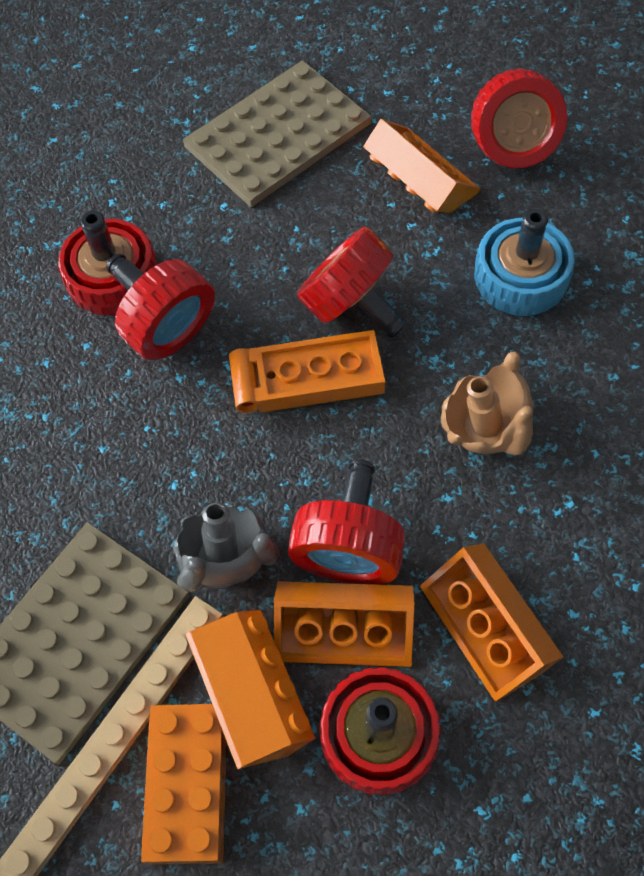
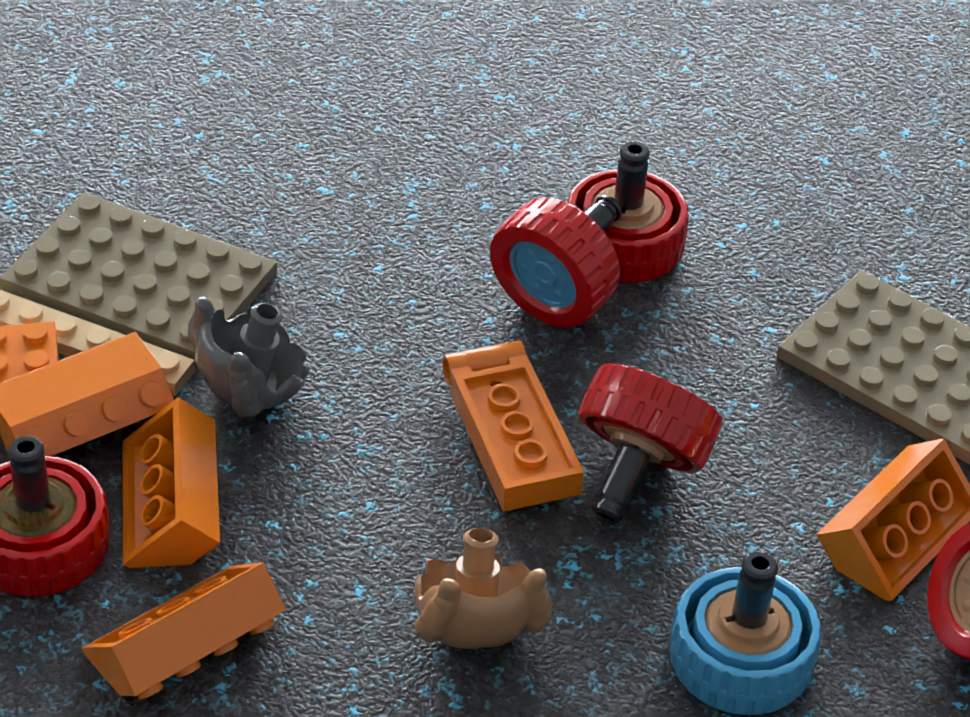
camera: 75 degrees right, 20 degrees down
(347, 537) = (263, 453): red wheel -> none

